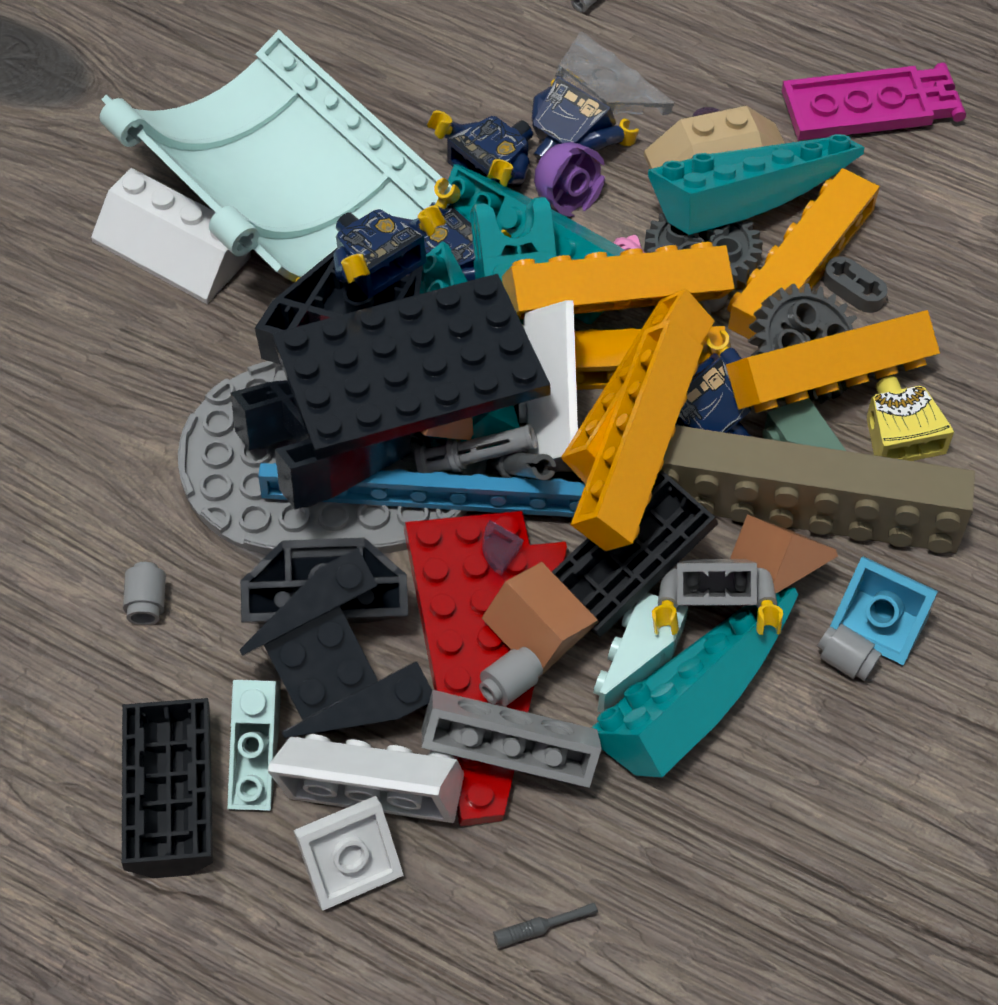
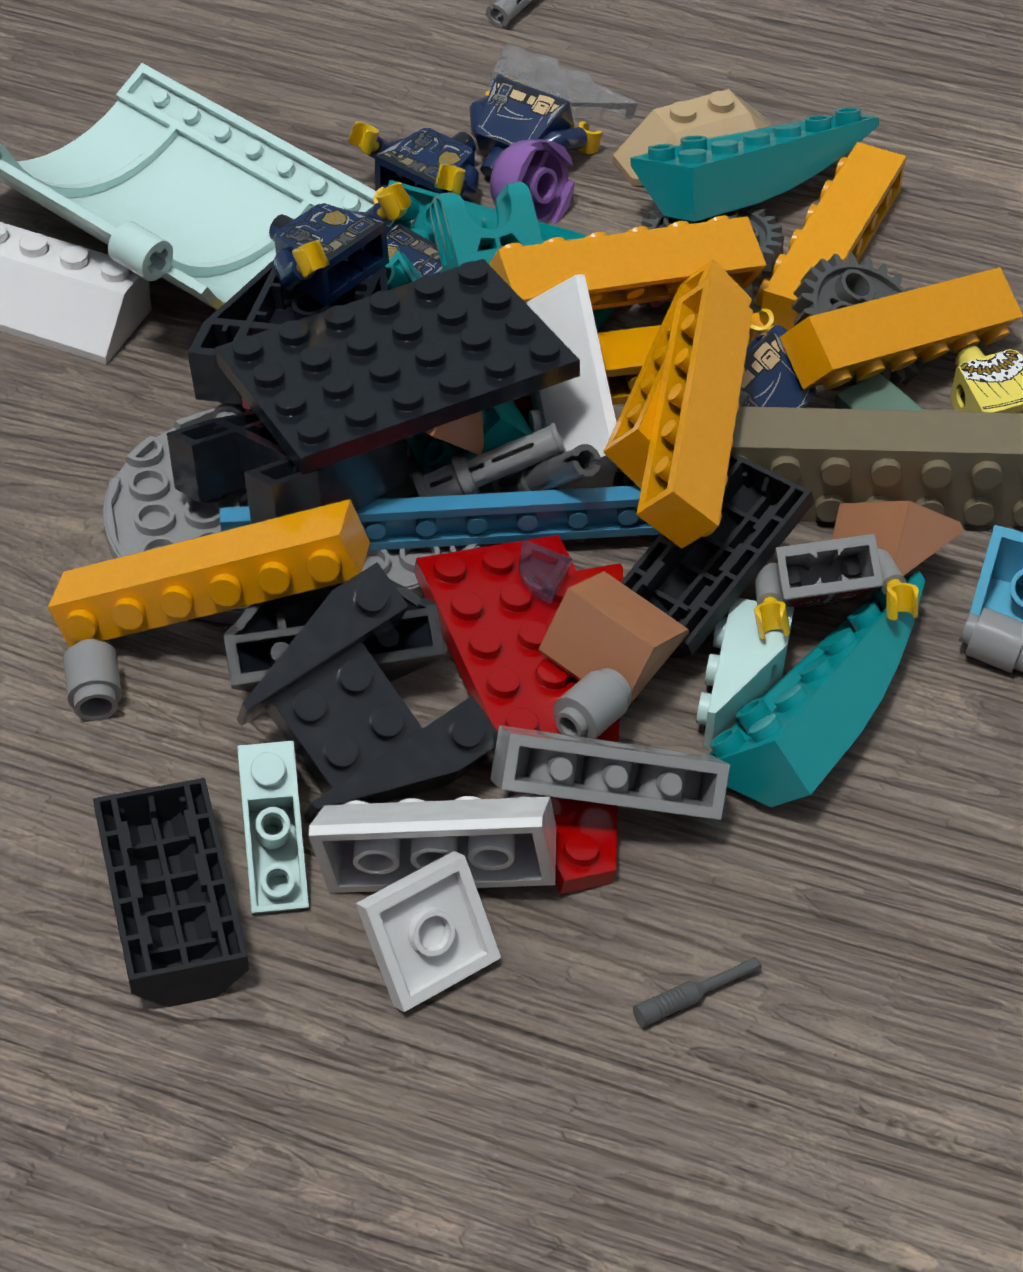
camera: 10 degrees left, 10 degrees down
(241, 526) = (211, 574): none -> light orange brick
(855, 284) = (914, 264): dark grey beam -> none
(871, 101) = (871, 79): dark pink hinge -> none

